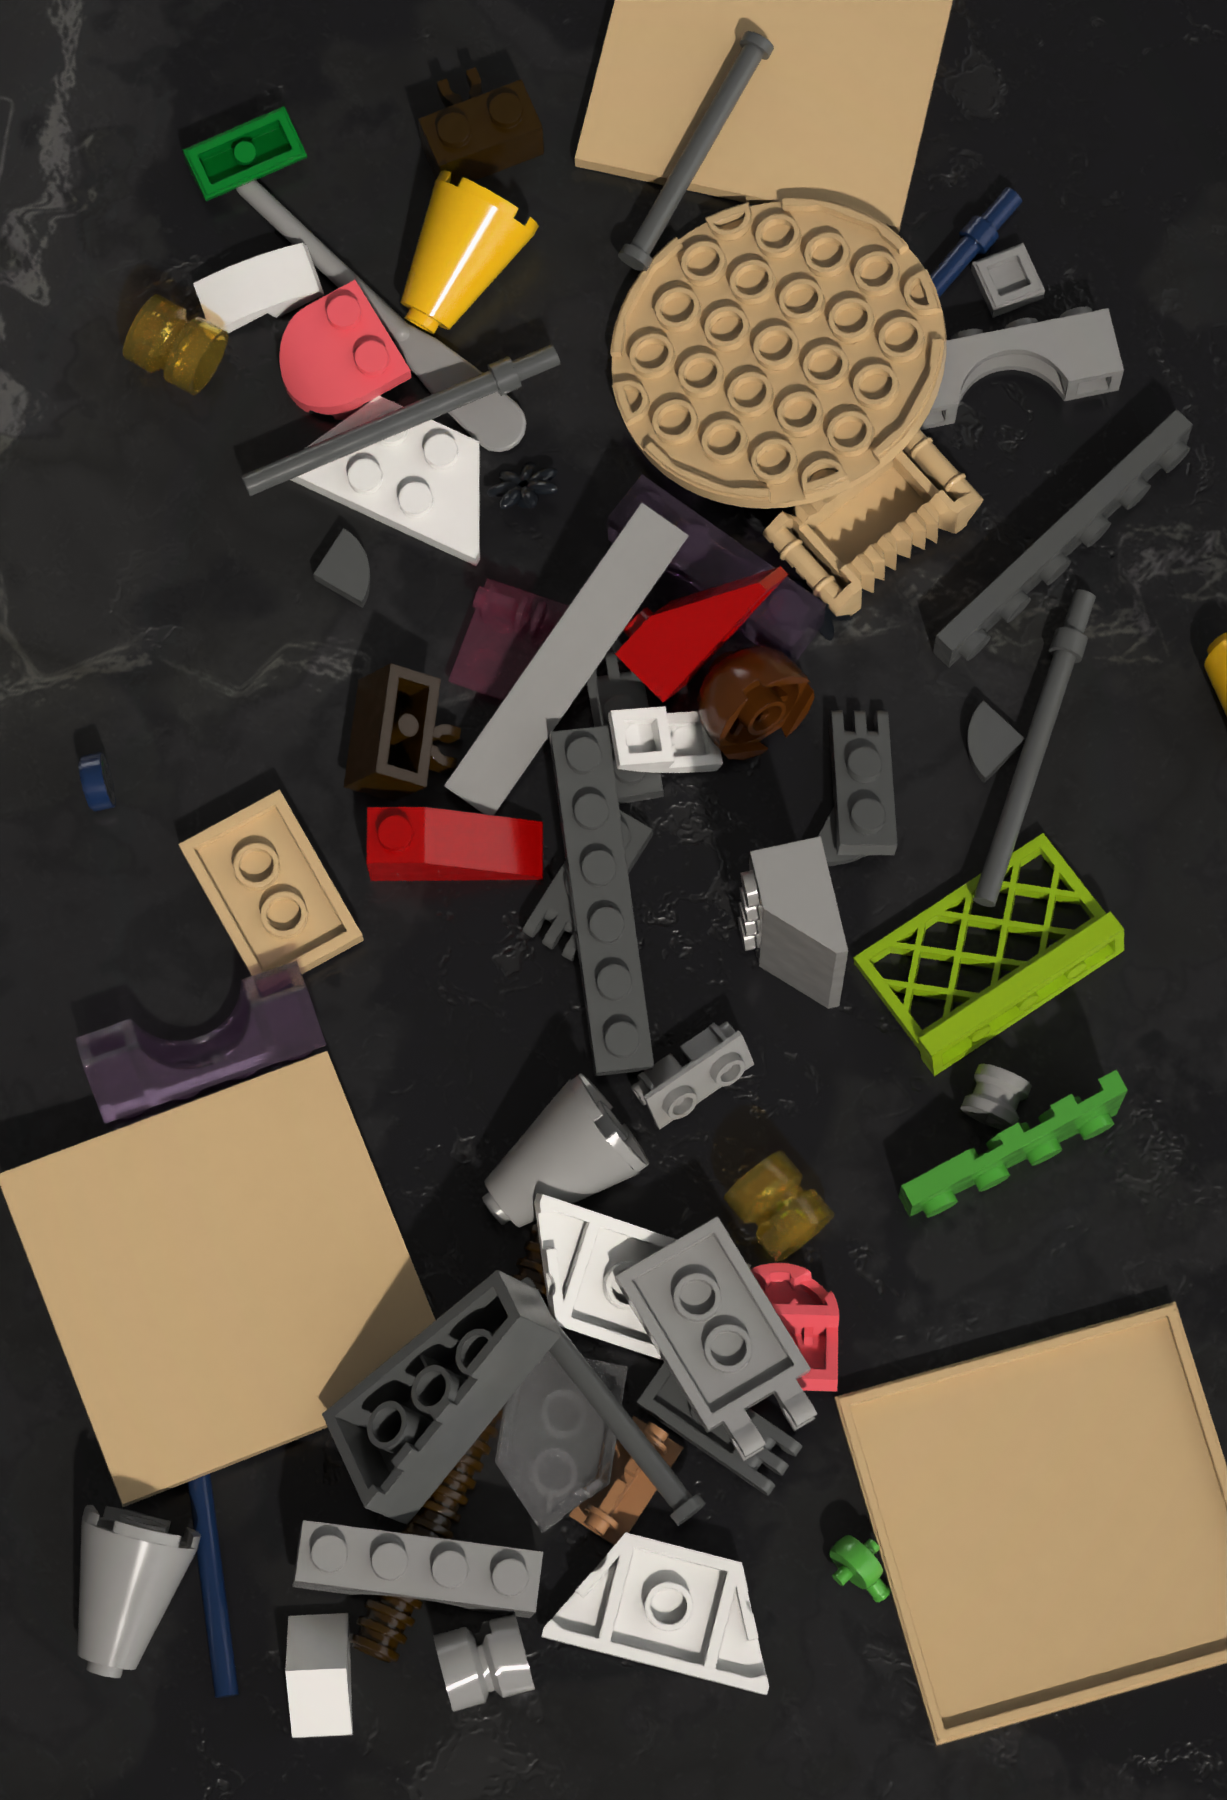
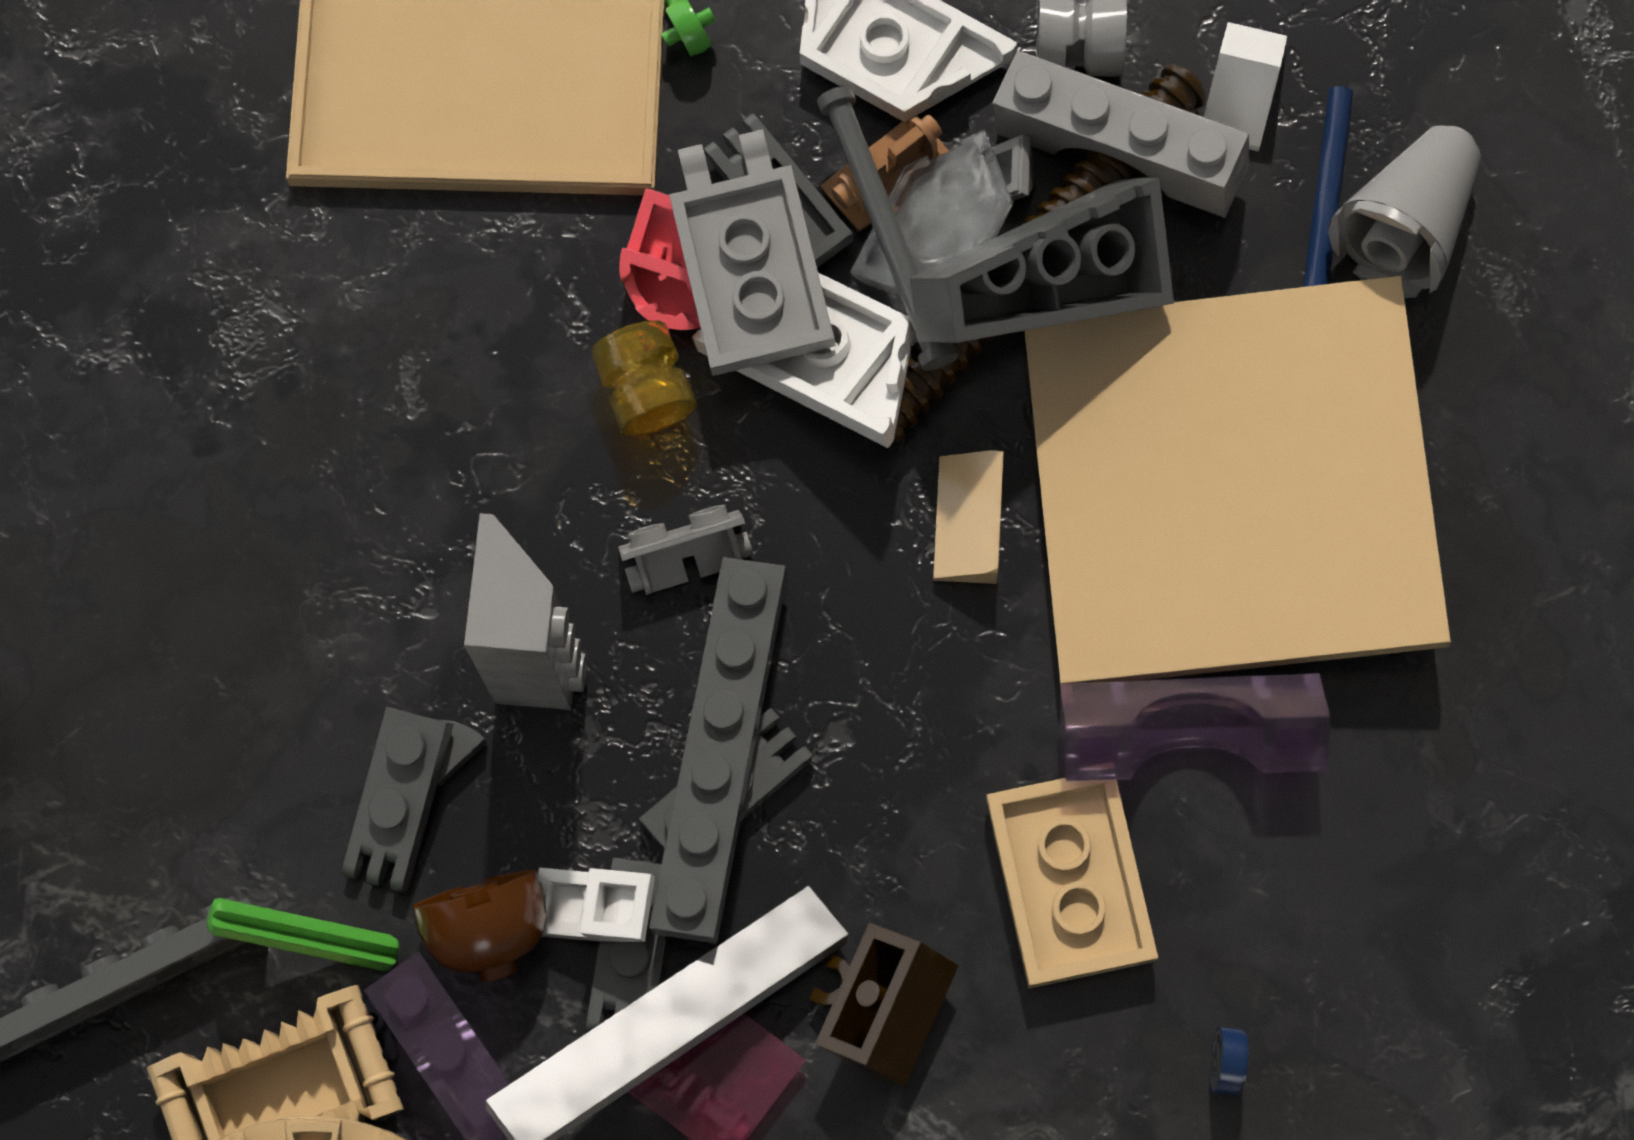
camera: 160 degrees left, 0 degrees up
(451, 845) = (859, 865): red slope -> none
(452, 1179) = (968, 517): none -> tan slope
(507, 1513) = (1016, 165): none -> light grey slope
(564, 1154) = (844, 491): light grey cone -> none
(683, 635) = (511, 1007): red slope -> none
(895, 638) = (302, 934): none -> bright green axle
(937, 1188) = (363, 366): bright green wing -> none
(990, 741) = (246, 805): dark grey tile -> none
(996, 1096) = (384, 424): light grey wheel -> none
(1015, 994) = (314, 527): lime fence -> none
(1067, 649) = (123, 882): dark grey bar -> none

